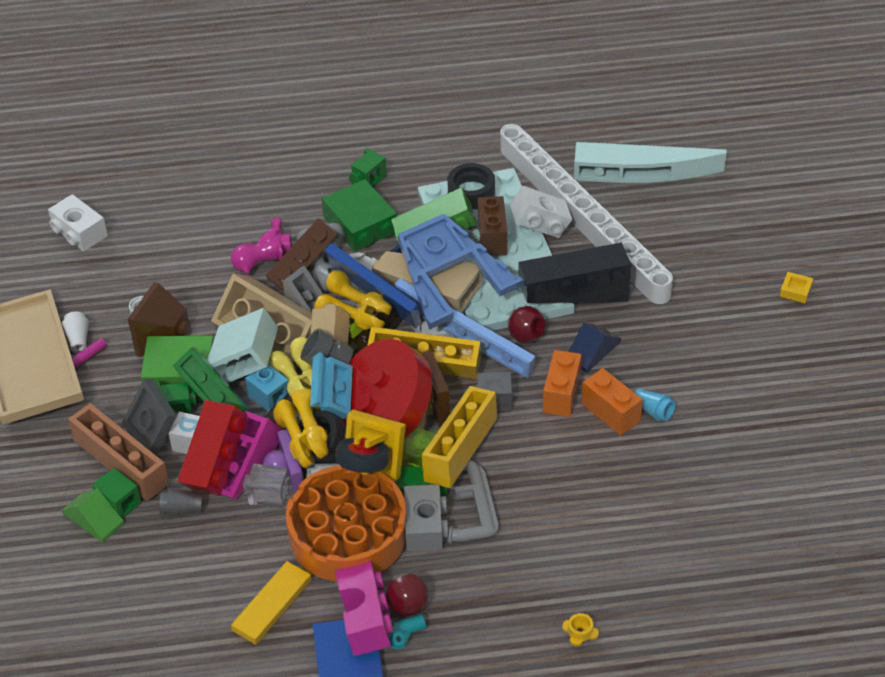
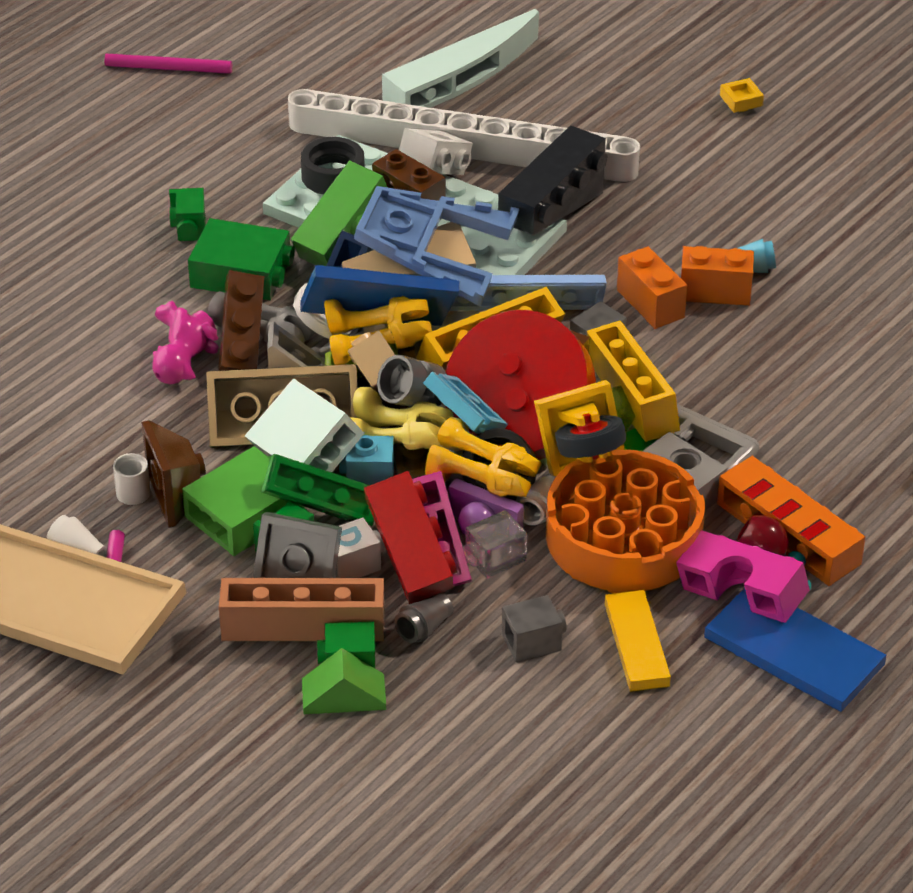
camera: 45 degrees left, 5 degrees down
(221, 552) = (533, 628): none -> flat silver brick
(446, 594) = (823, 538): none -> orange brick
(483, 67) = (168, 63): none -> dark pink bar
(526, 324) = (549, 256): dark red piece -> none
(593, 344) = (626, 237): dark blue slope -> none

